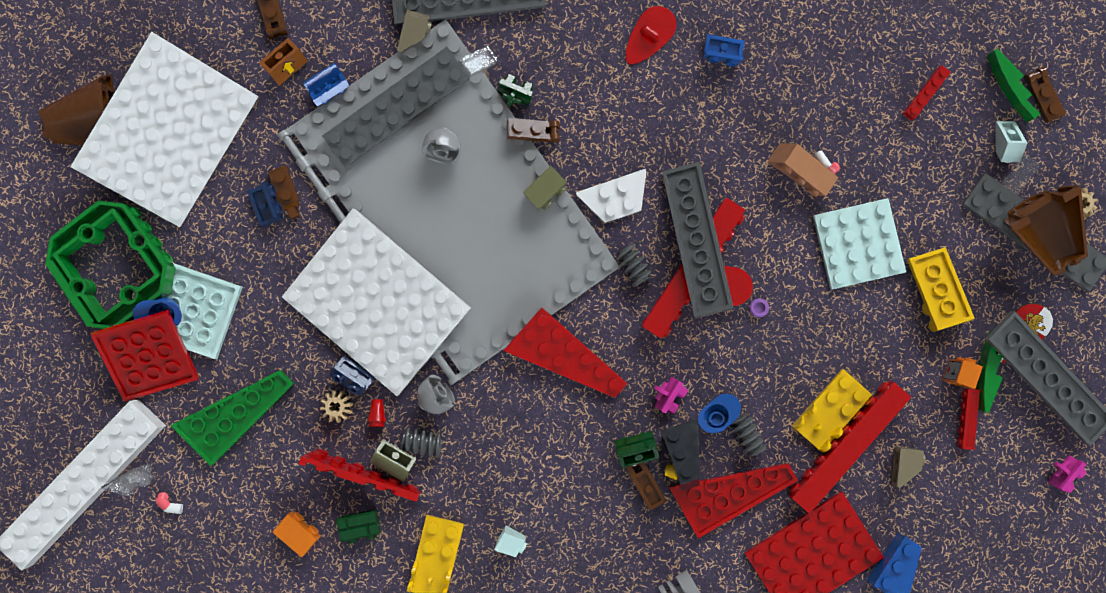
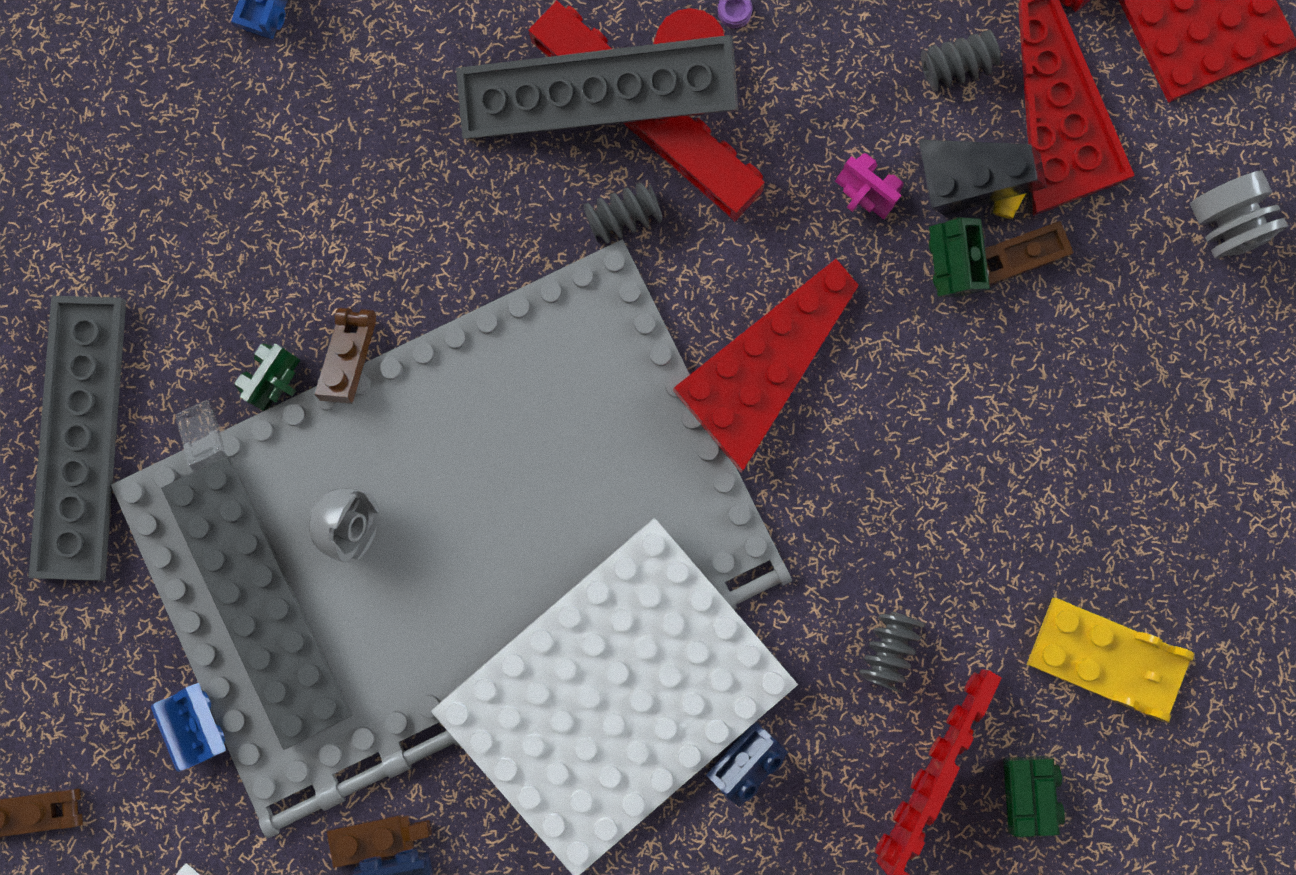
camera: 70 degrees left, 5 degrees down
(283, 61) = (129, 802): dark orange brick -> none
(335, 398) = (812, 806): tan gear -> none
(376, 414) = (826, 729): red cone -> none
(393, 460) = (918, 709): olive brick -> none
(413, 29) = (118, 545): dark tan slope -> none
(433, 396) = (809, 614): light grey cylinder -> none
(510, 542) = (1099, 514): light aqua slope -> none
(546, 188) = (456, 346): olive brick -> none
(616, 197) = (494, 227): white wing -> none
(650, 34) = (211, 123): red shield -> none
(719, 413) = (915, 101): blue piece -> none

